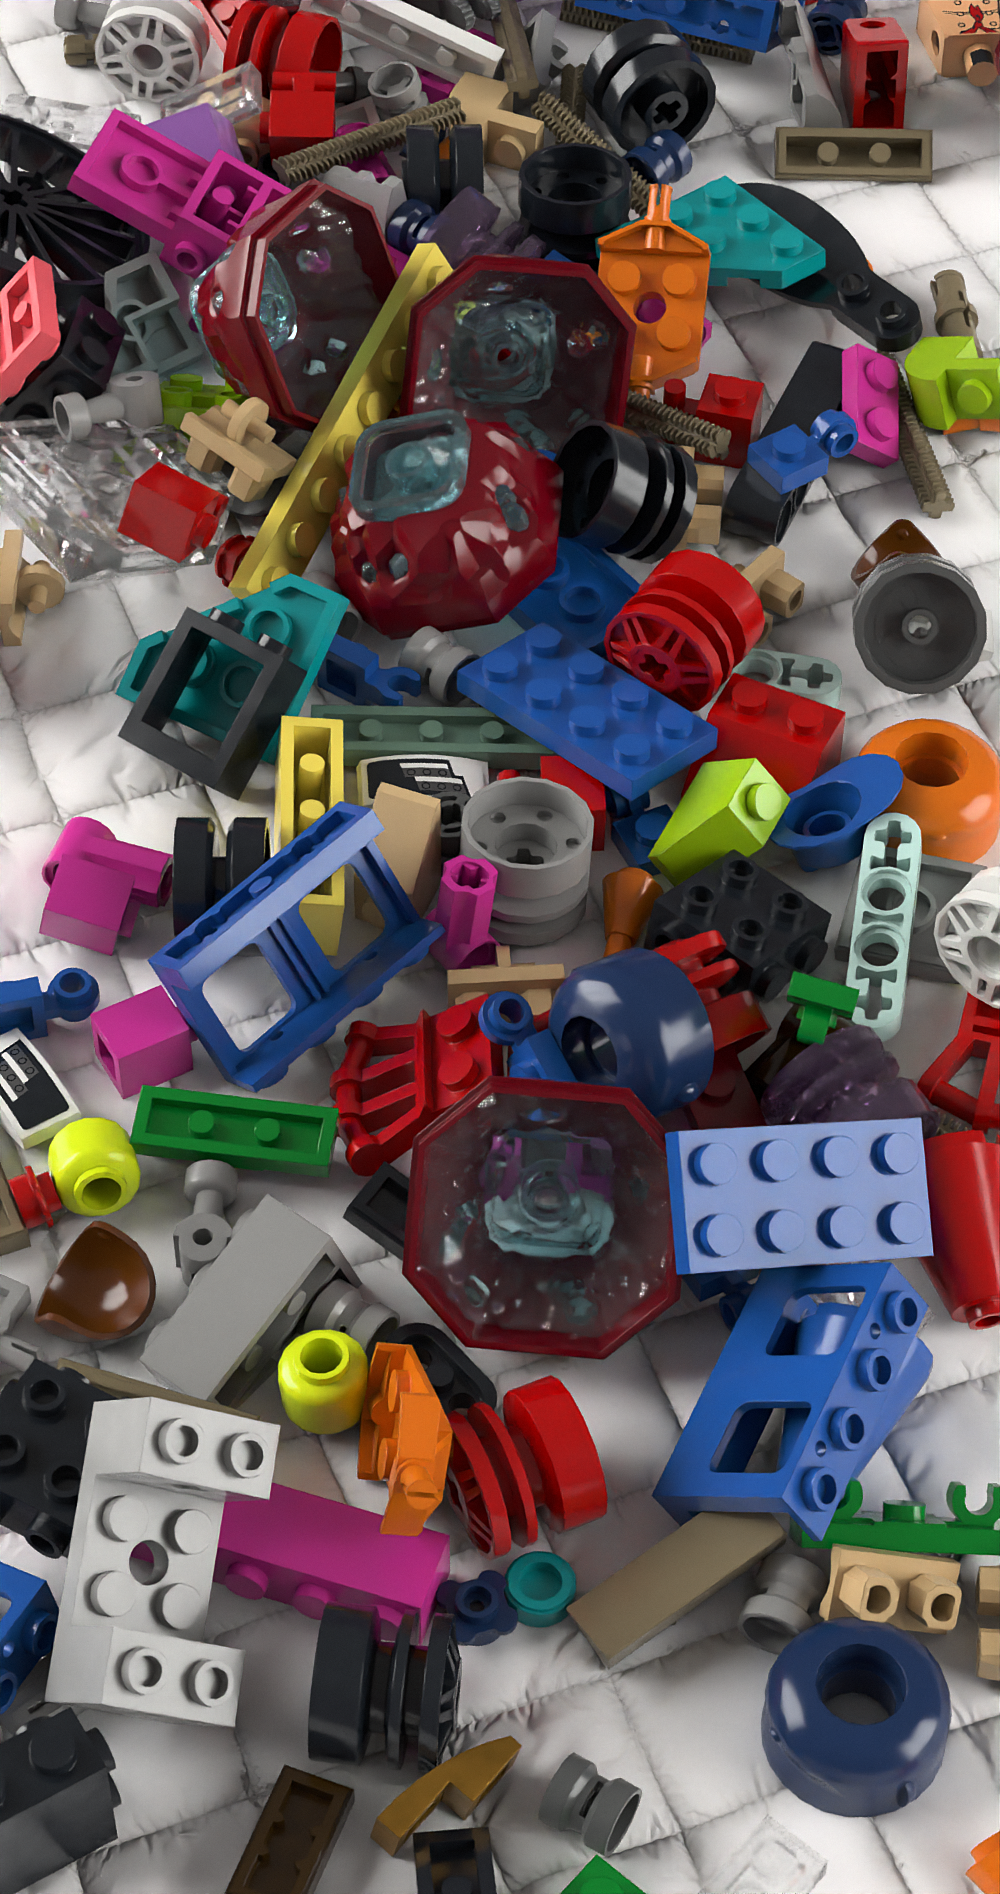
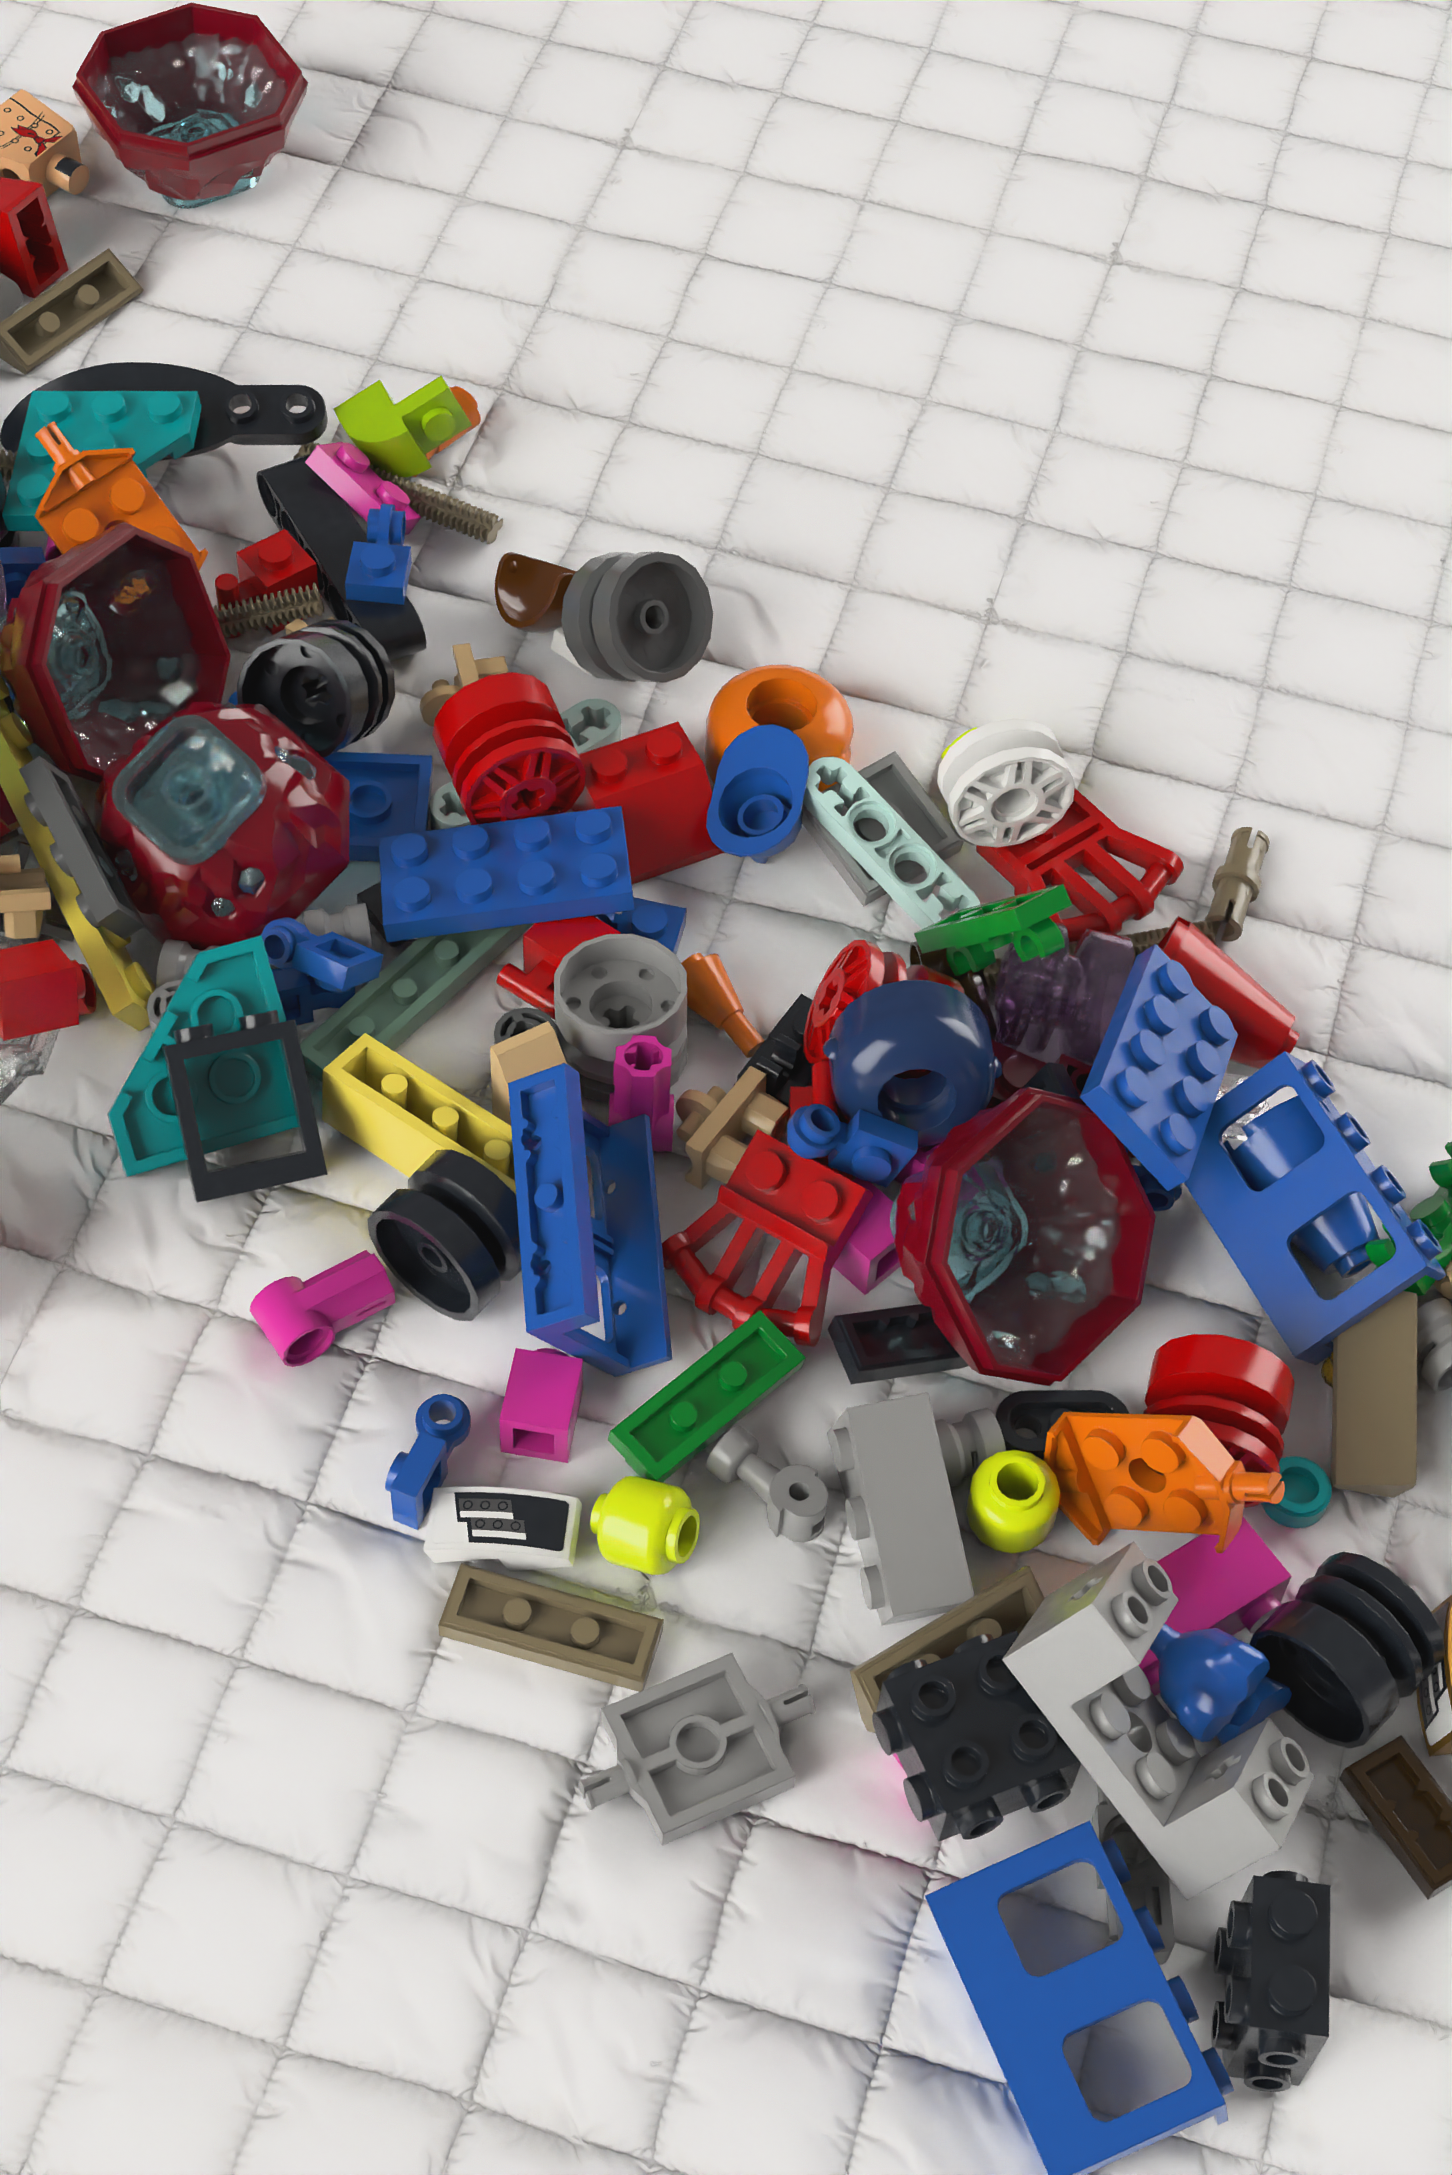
camera: 55 degrees left, 5 degrees up
(35, 1197) = (636, 1588): red plate -> none
(89, 905) = (365, 1346): dark pink brick -> none
(99, 1288) = (777, 1606): reddish brown helmet -> none
(256, 1601) = (1215, 1683): none -> blue animal
(319, 459) = (79, 849): none -> dark grey plate
(390, 661) = (329, 958): none -> blue plate
(420, 774) = (454, 1031): slope -> none
(483, 1626) = (1305, 1534): dark blue plate -> none
(722, 810) = (699, 871): lime slope -> none
(760, 917) = (798, 928): black brick -> none
(954, 312) = (297, 370): dark tan pin -> none

